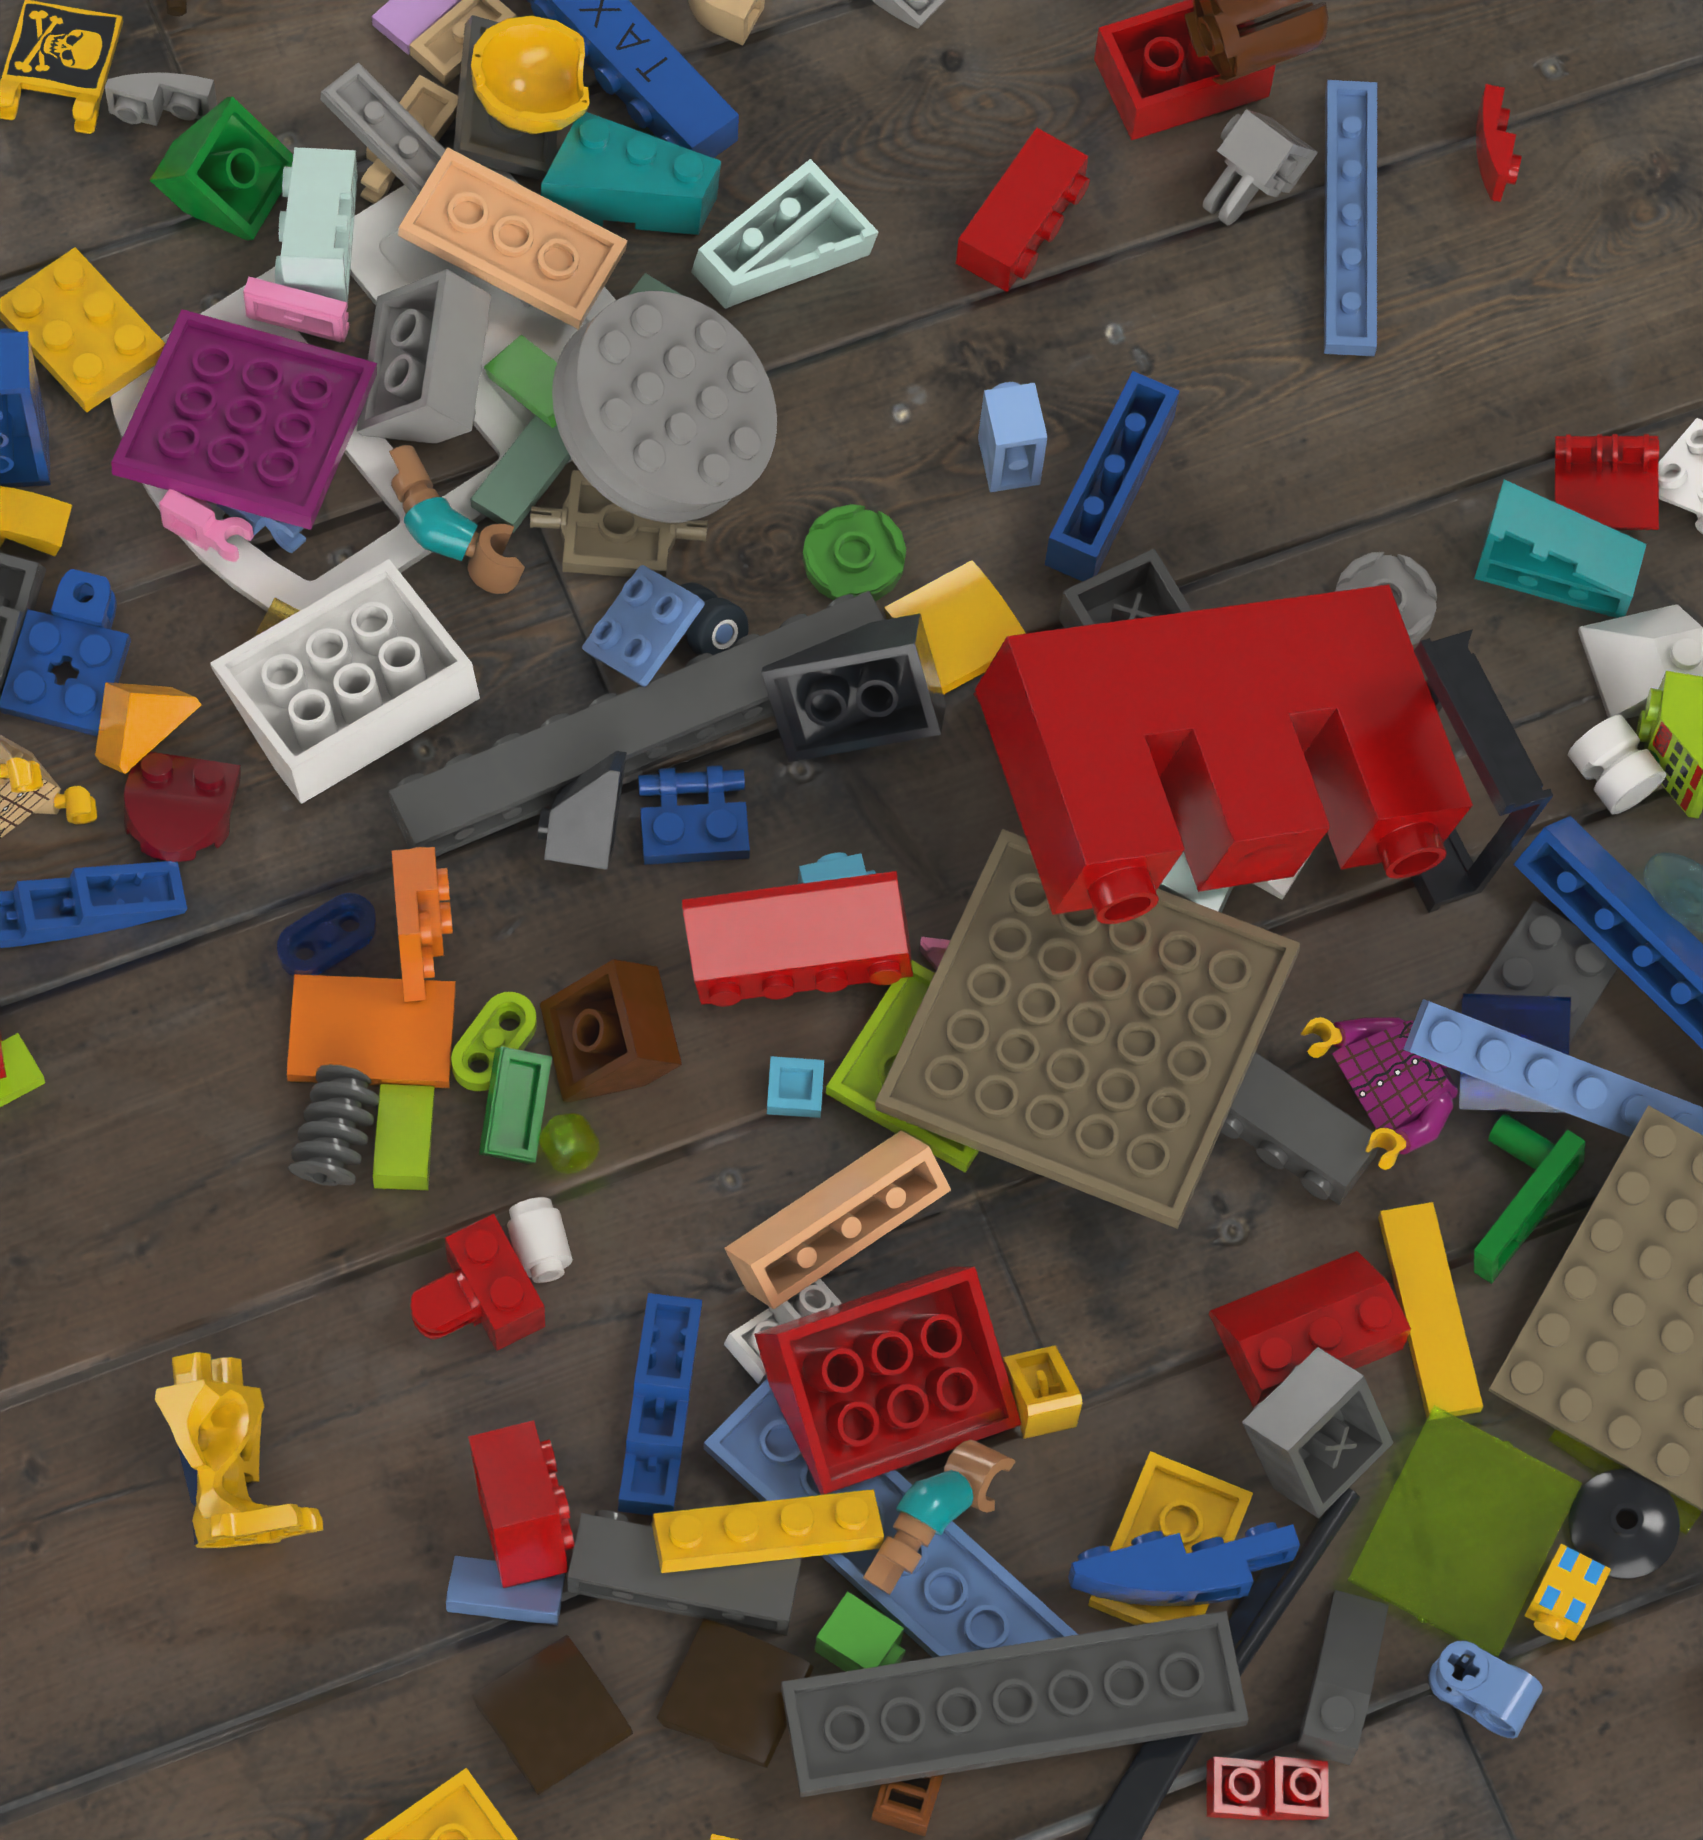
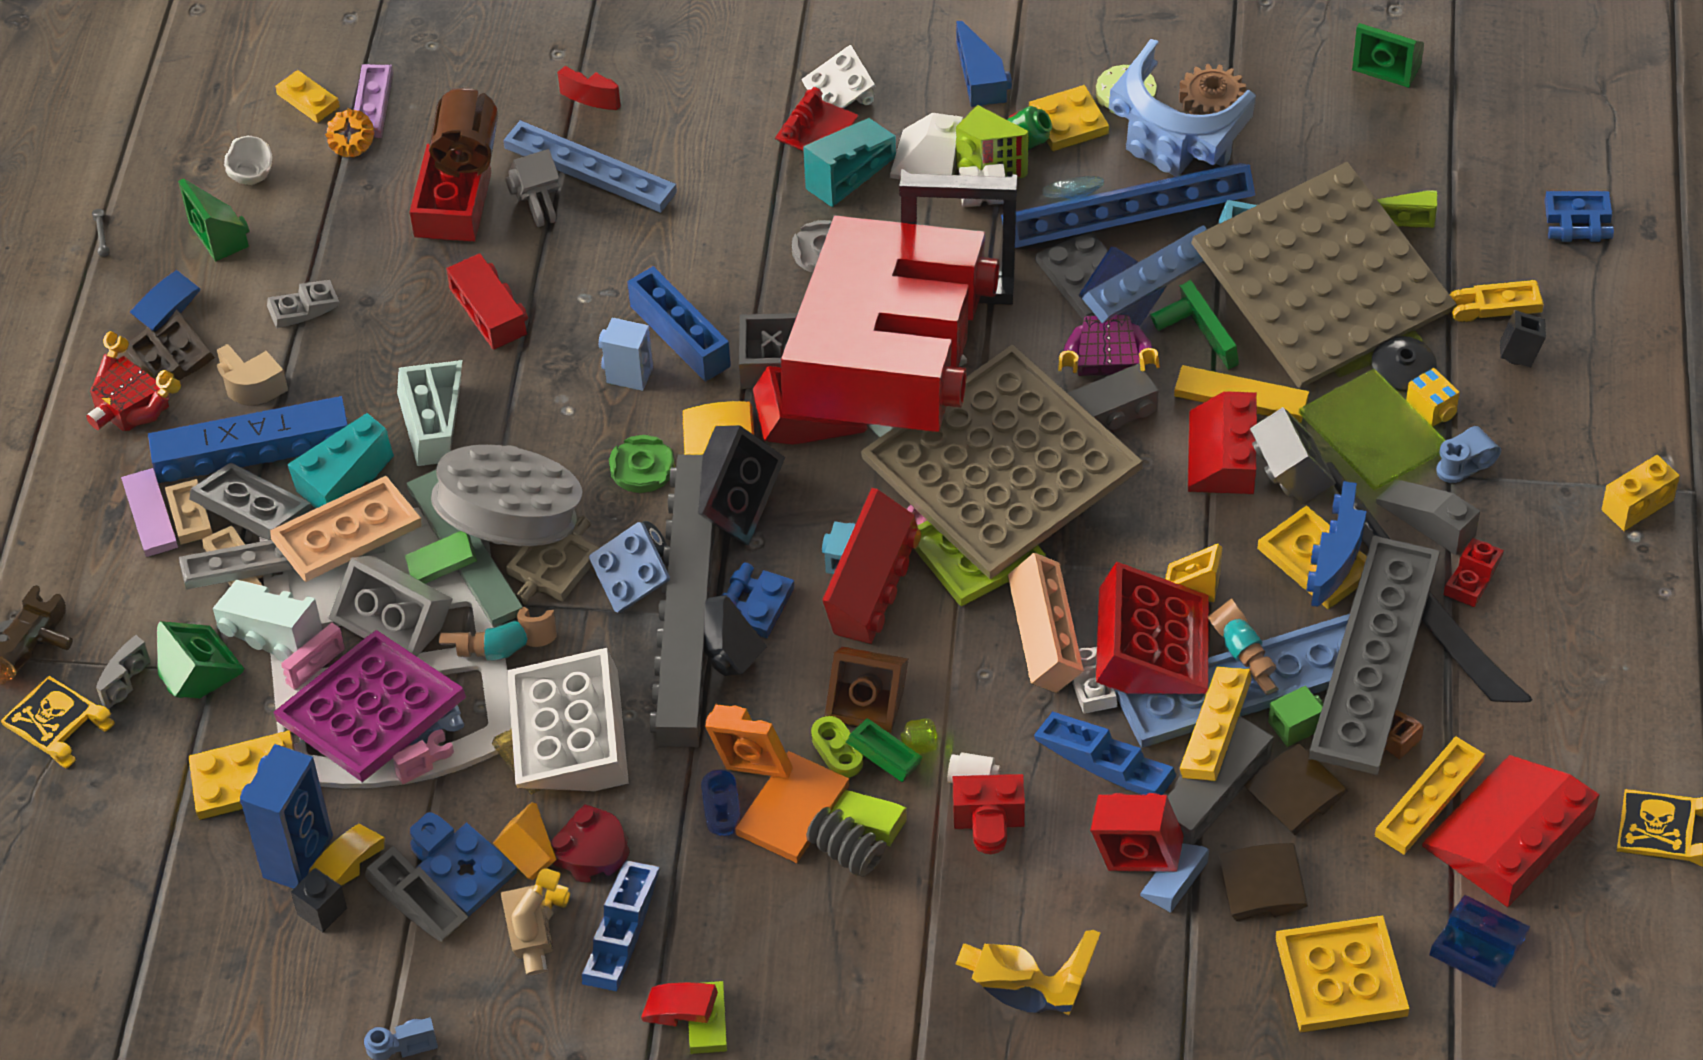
camera: 55 degrees left, 15 degrees down
(531, 74) = (254, 472): yellow cylinder -> none
(795, 1087) = (950, 616): medium azure plate -> none

